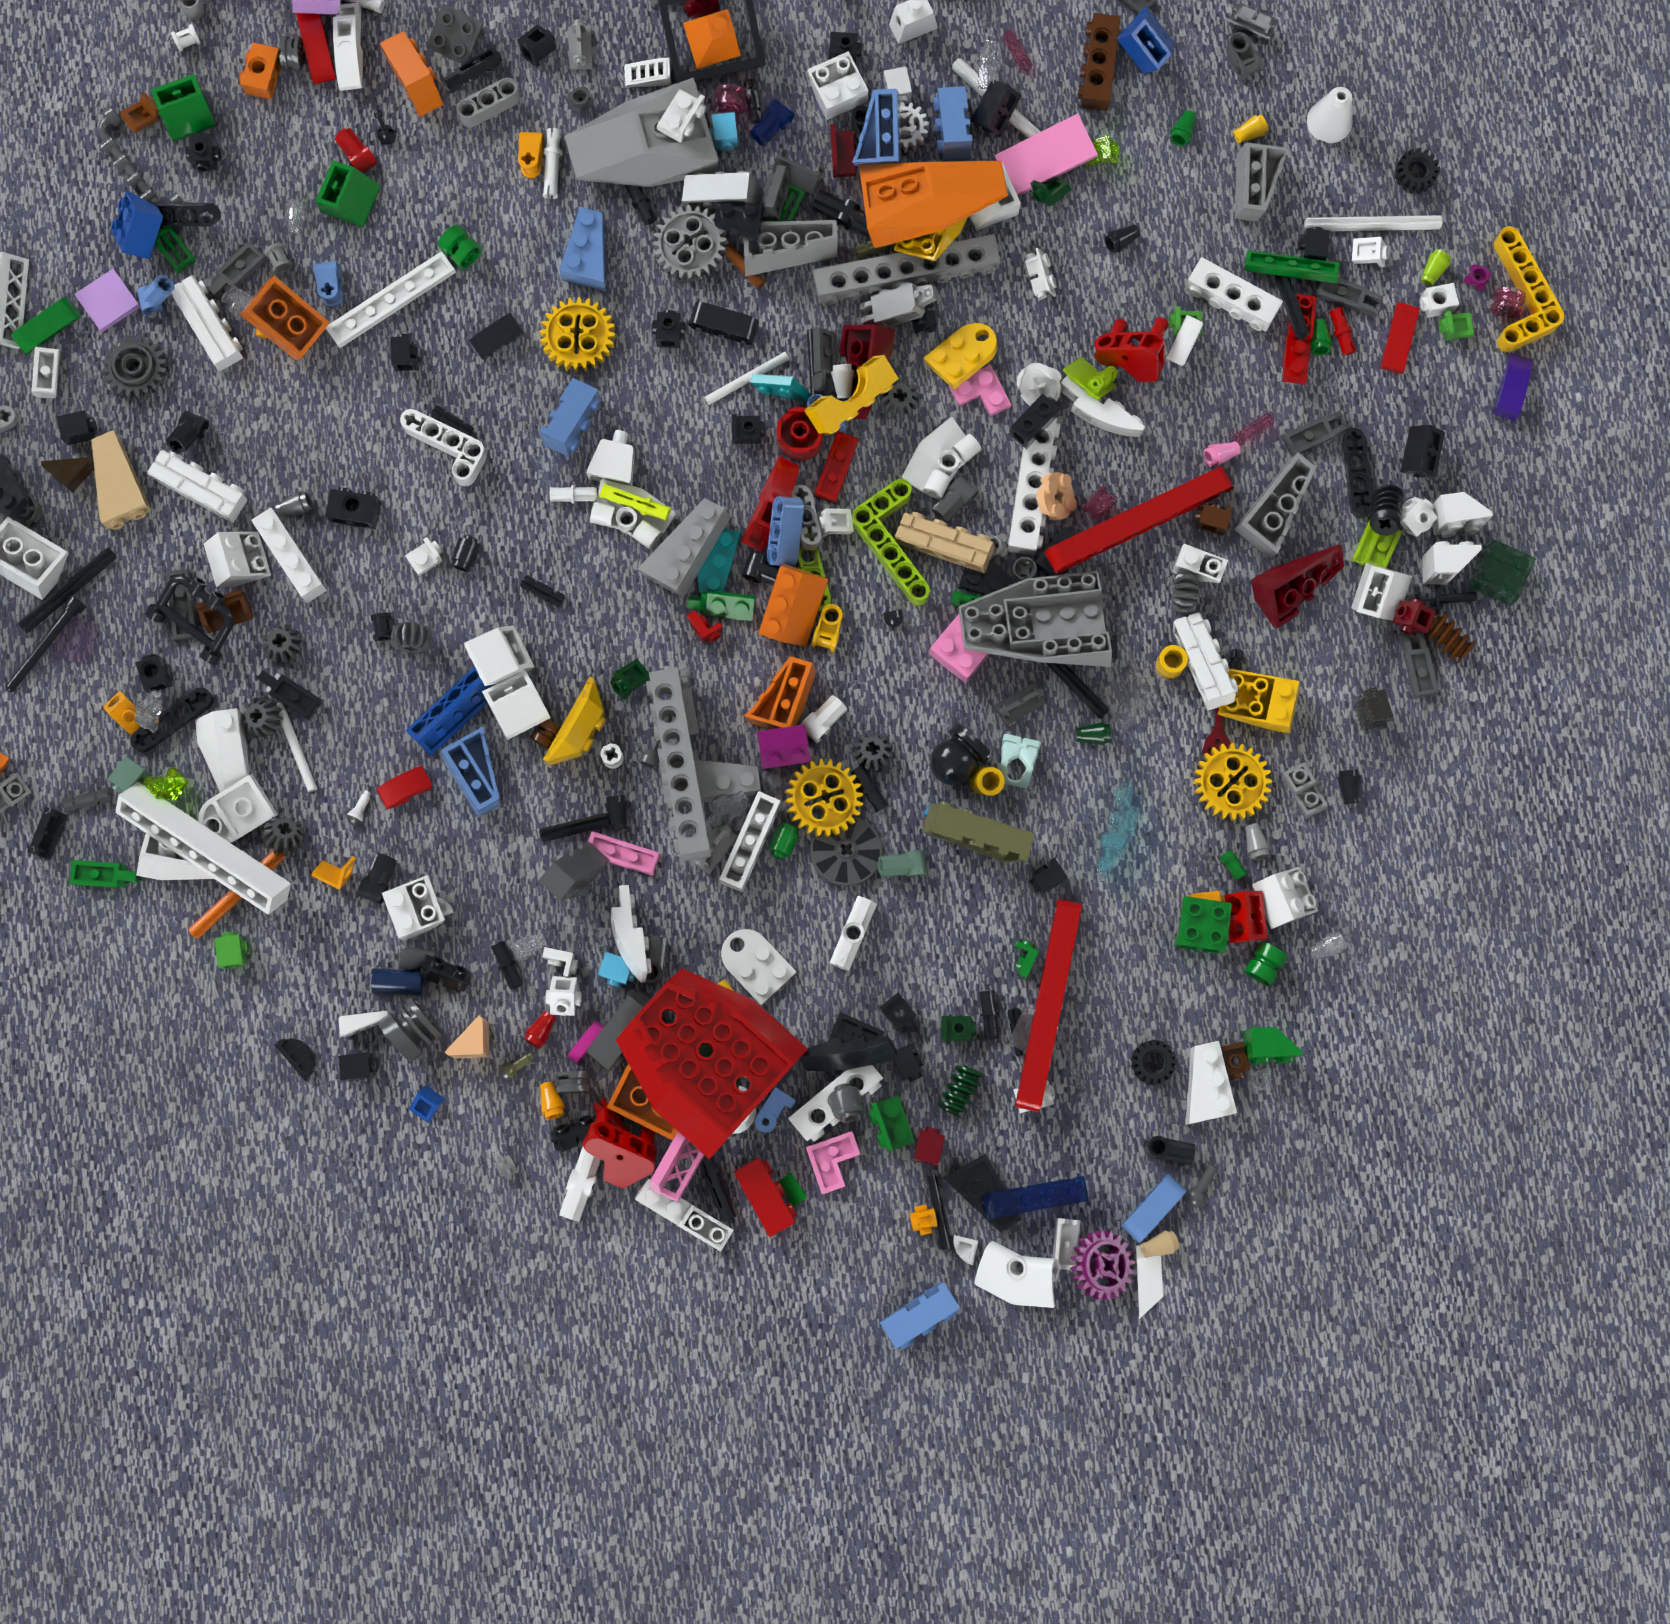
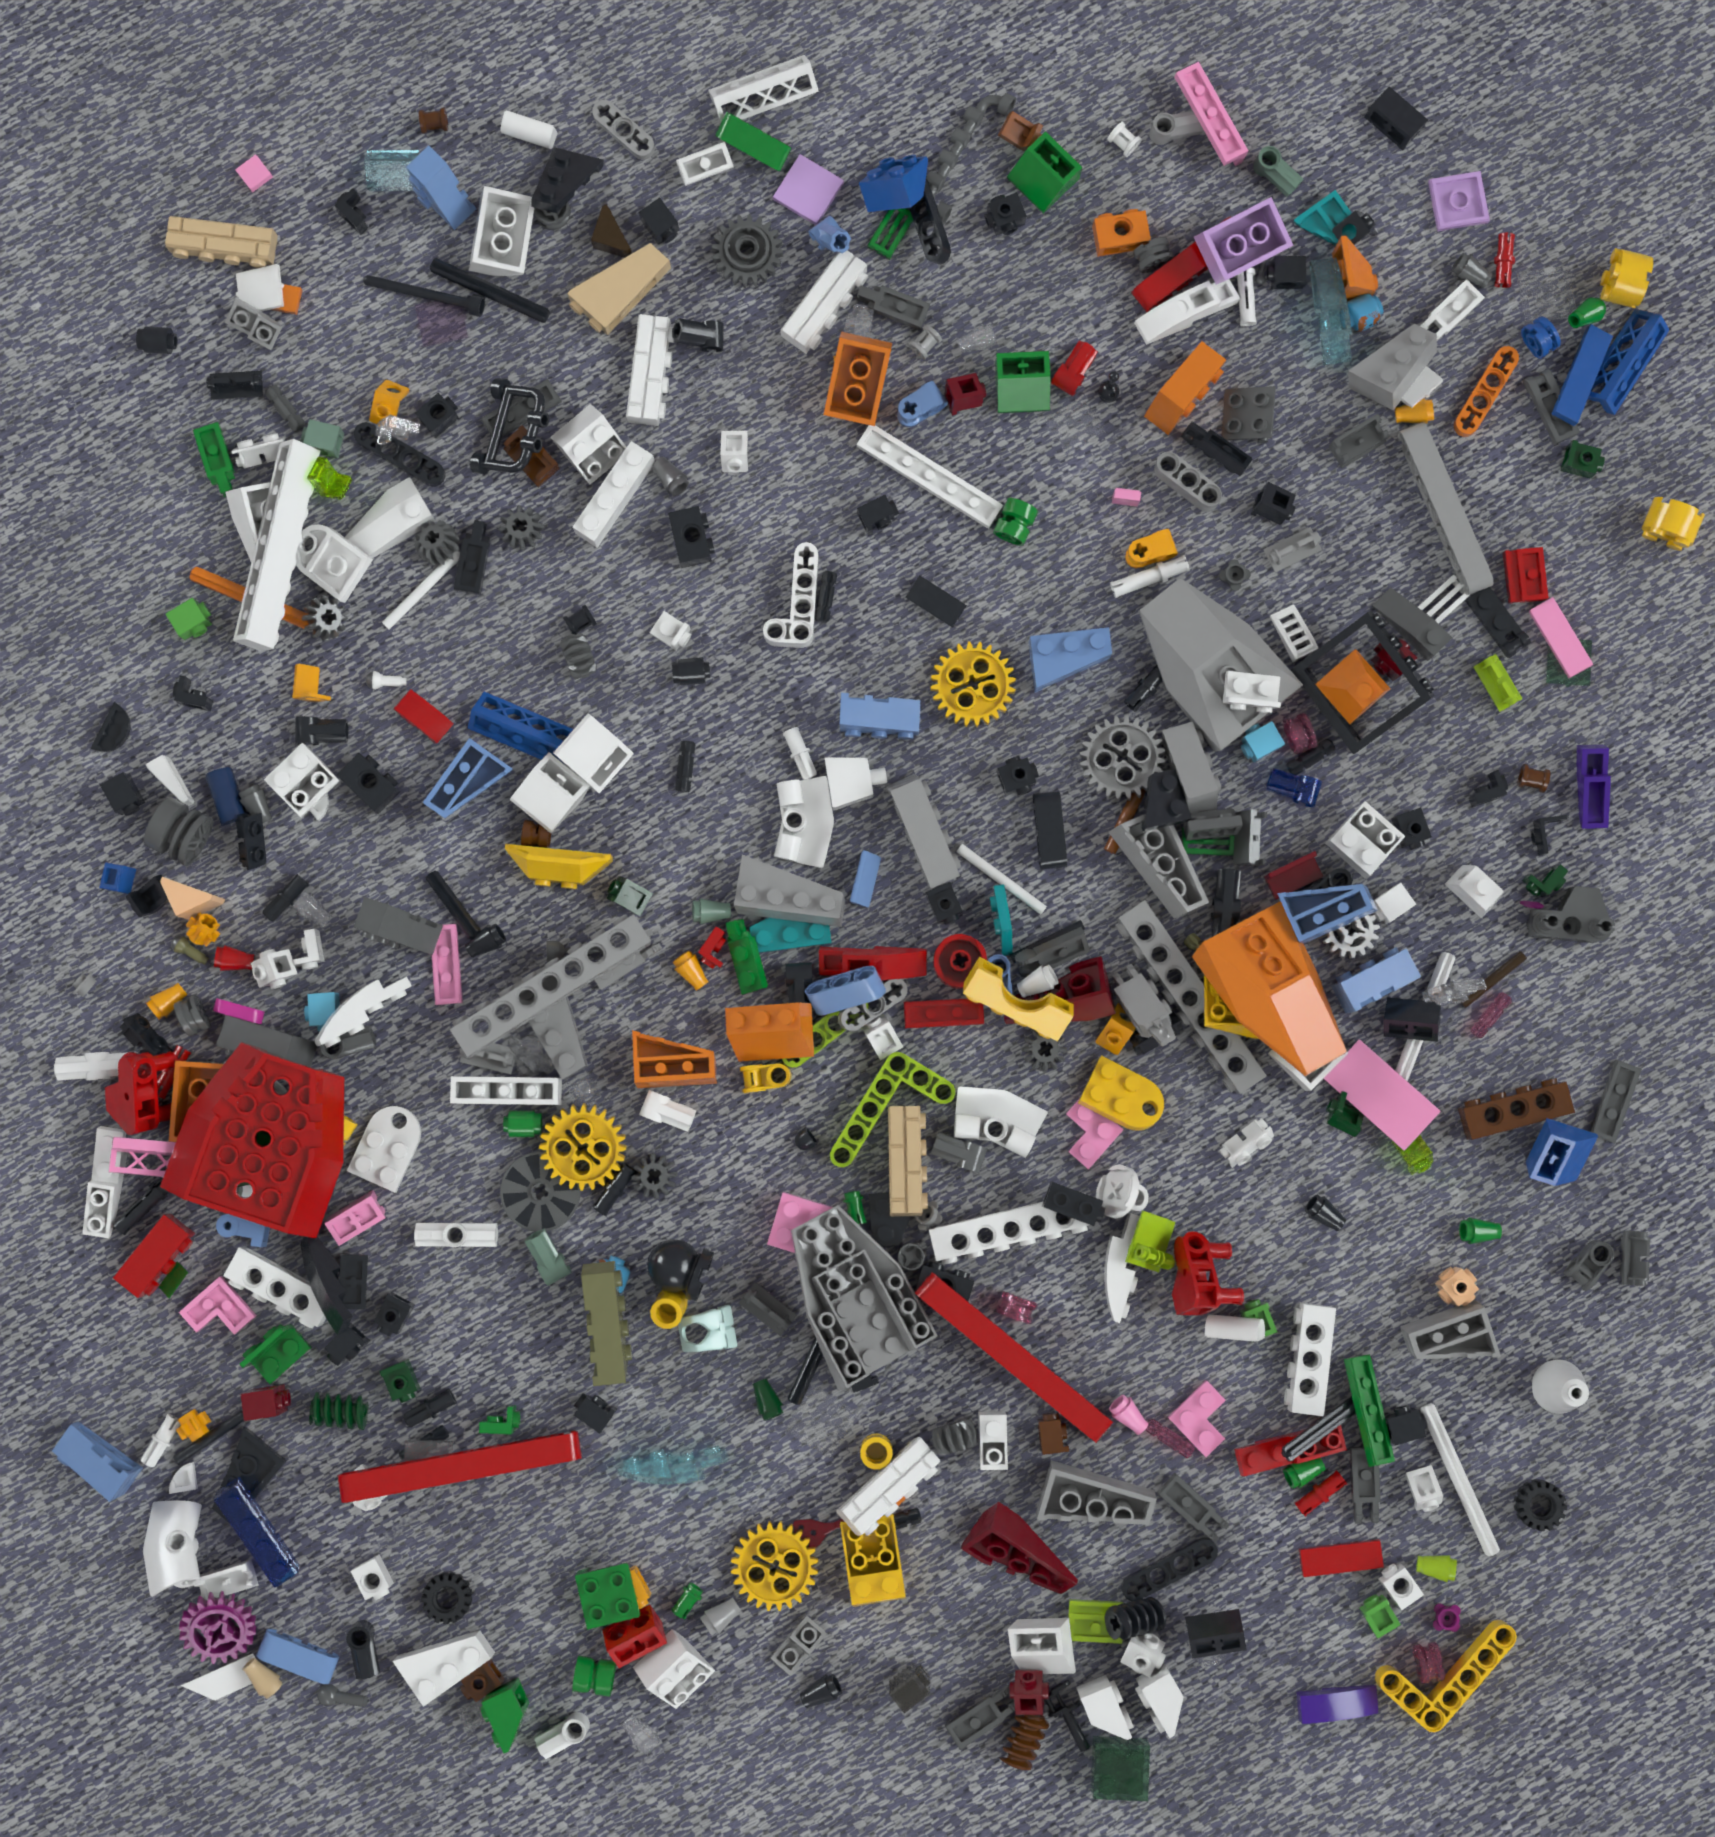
camera: 70 degrees right, 5 degrees up
(111, 843) = (250, 452): none -> white hinge
(298, 445) = (734, 451): none -> white bracket
(302, 975) = (194, 699): none -> black bracket
(335, 244) = (964, 392): none -> dark red brick
(455, 854) = (354, 777): none -> black brick
(455, 1078) = (148, 898): none -> black bracket
(479, 154) = (1126, 497): none -> bright pink tile
(503, 1044) = (202, 929): none -> light orange gear
(615, 762) = (546, 917): white bush -> none
(638, 503) = (815, 853): neon yellow pin -> none
(671, 620) = (710, 911): none -> sand green cone
(679, 419) = (923, 830): none -> light grey wedge
(699, 484) = (865, 879): none -> medium blue slope
(713, 653) = (690, 969): none -> light orange cone
(783, 746) = (613, 1085): magenta slope -> none
(804, 1011) = (355, 1218): none -> bright pink hinge
(846, 1103) = (273, 1301): dark grey head -> none
(911, 338) = (1115, 1032): none -> light orange bracket
(925, 1254) = (160, 1441): none -> white axle
(988, 34) = (1496, 976): none -> dark brown bar
(1058, 485) = (1016, 1257): light nougat plate -> none
(1103, 1123) = (376, 1566): none -> white brick
(1221, 161) = (1447, 1285): none -> light nougat brick
(1245, 406) = (1193, 1415): none -> bright pink plate
(1251, 129) = (1510, 1304): yellow cone -> none
(1305, 1014) = (561, 1735): none -> white piece

